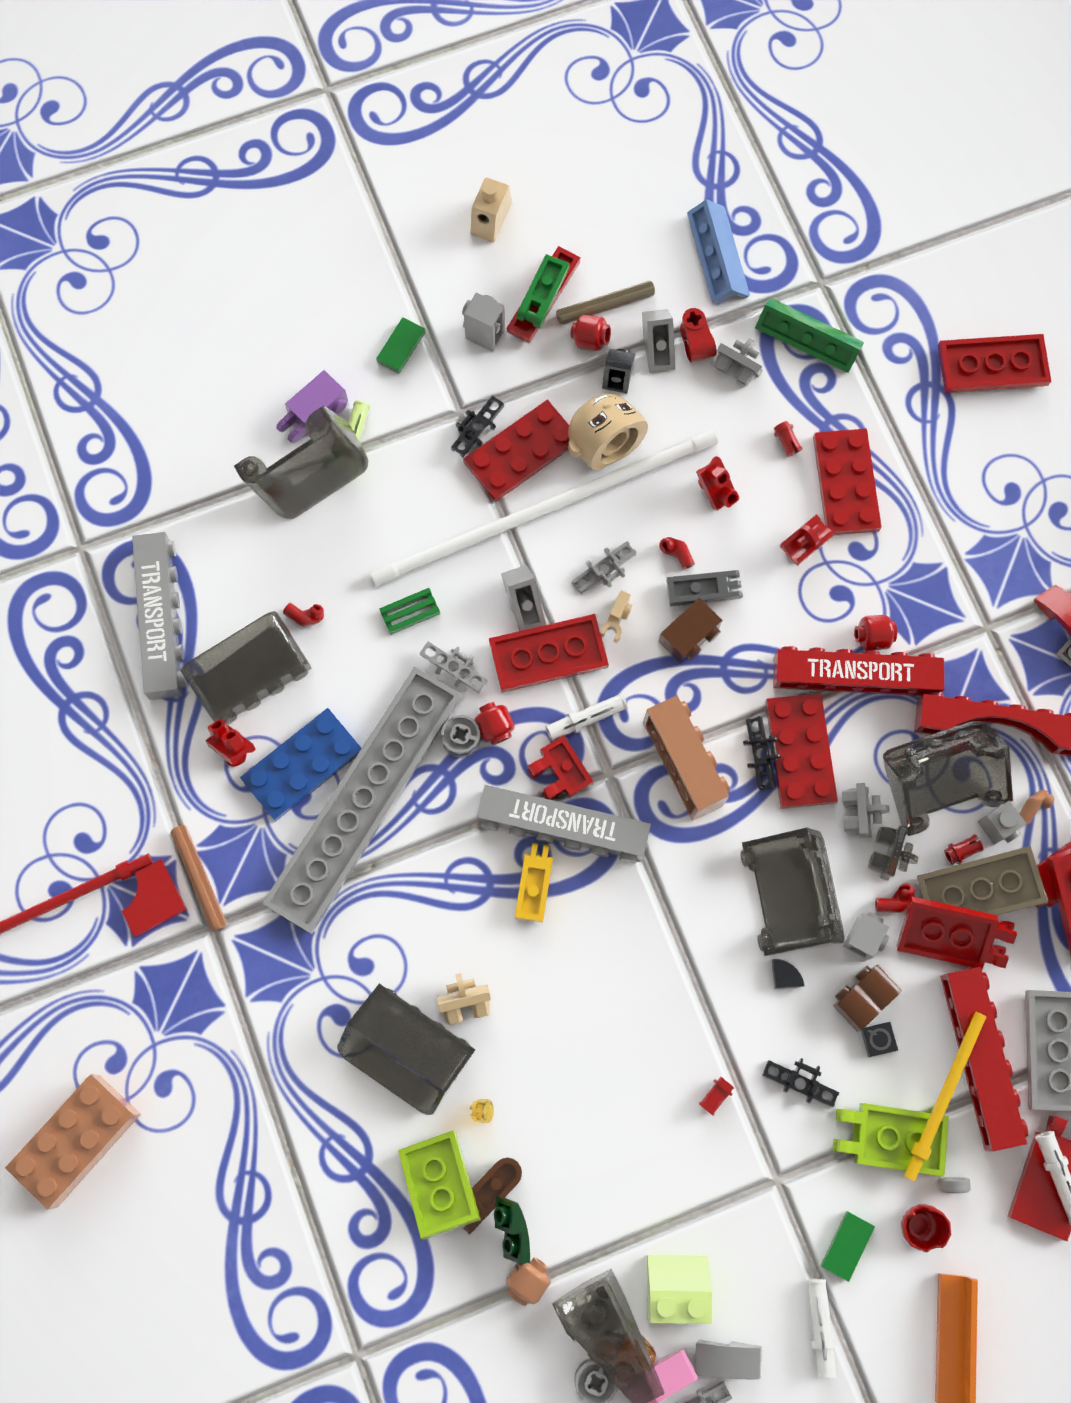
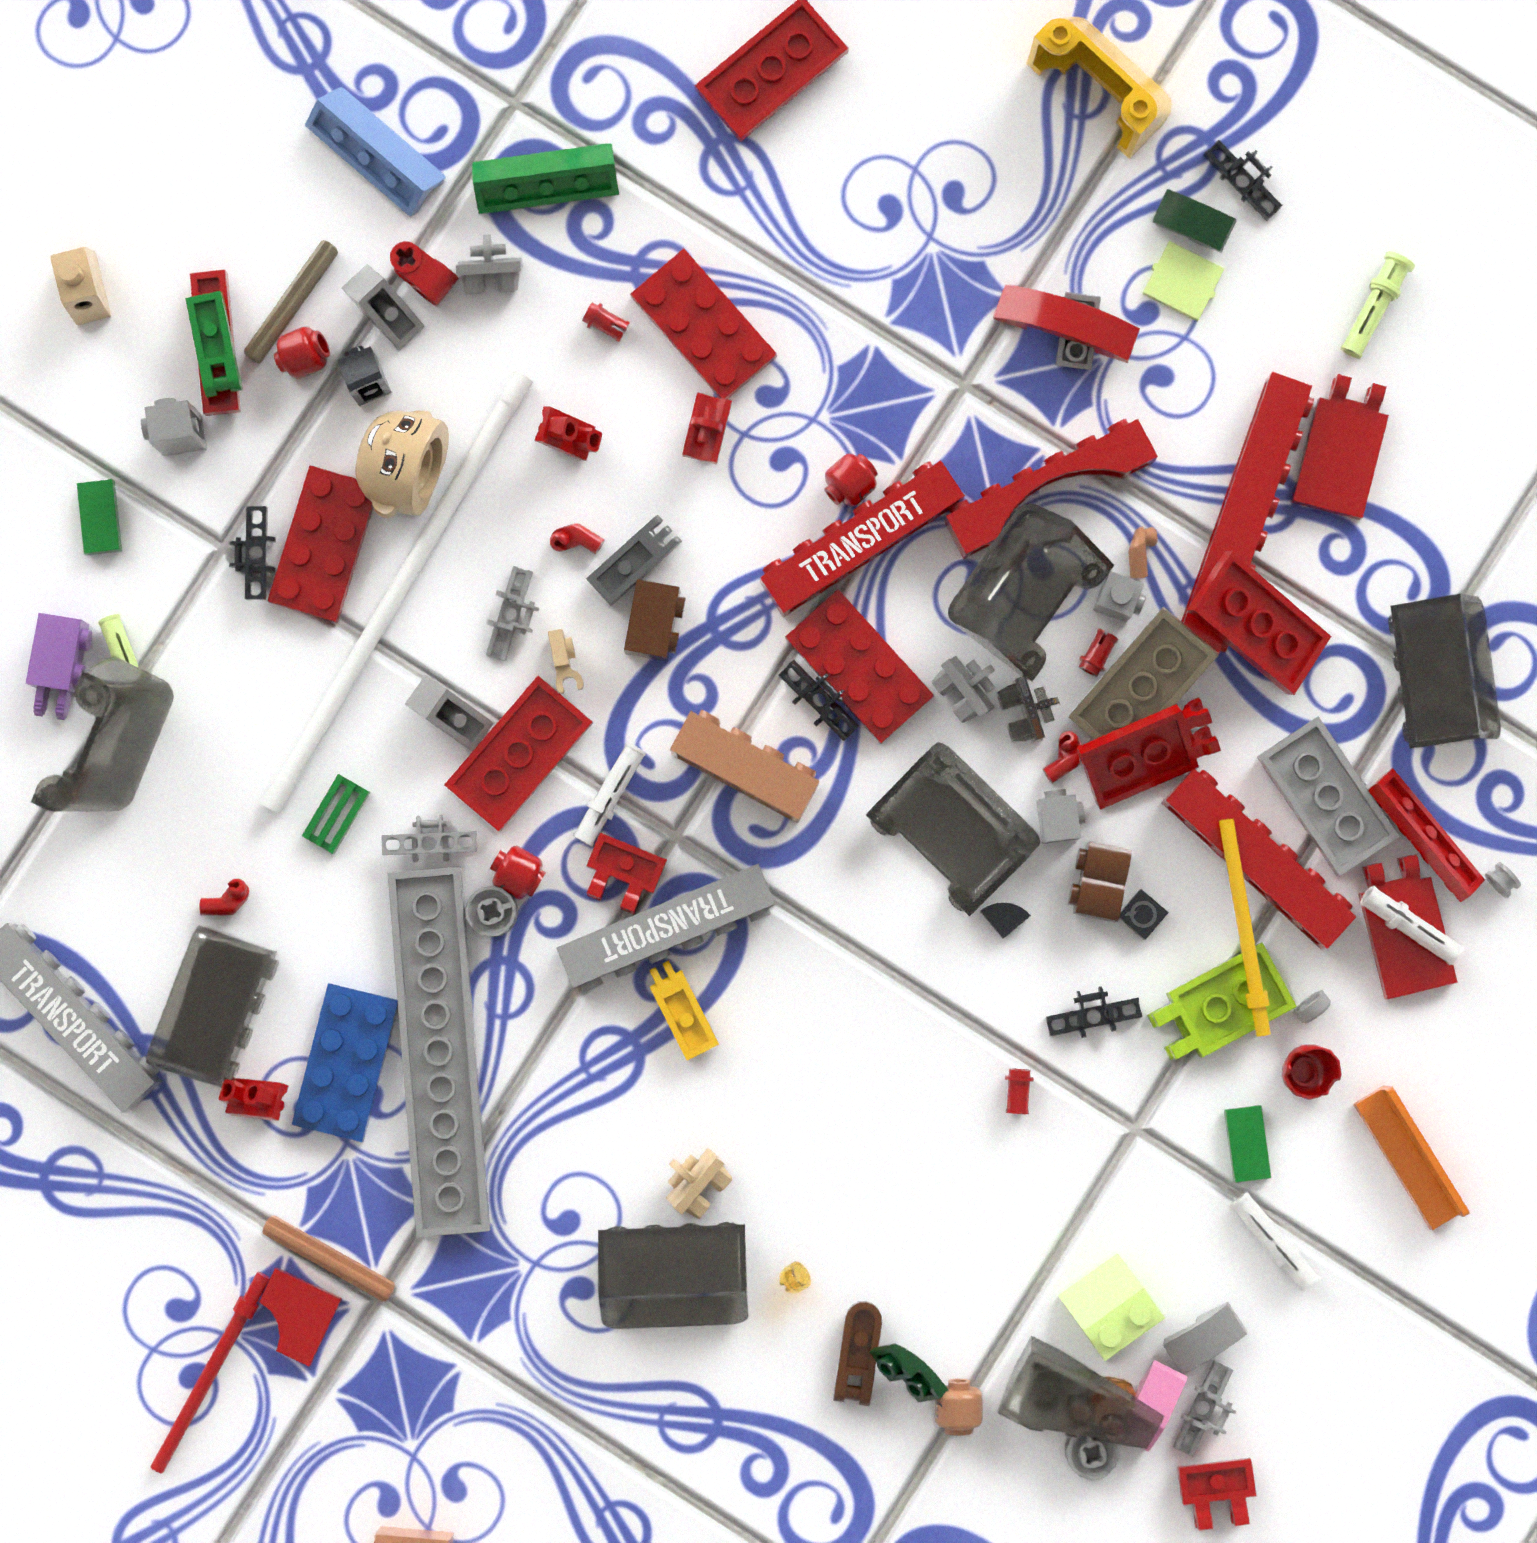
camera: 35 degrees left, 10 degrees up
(438, 1185) = (804, 1382): lime plate -> none

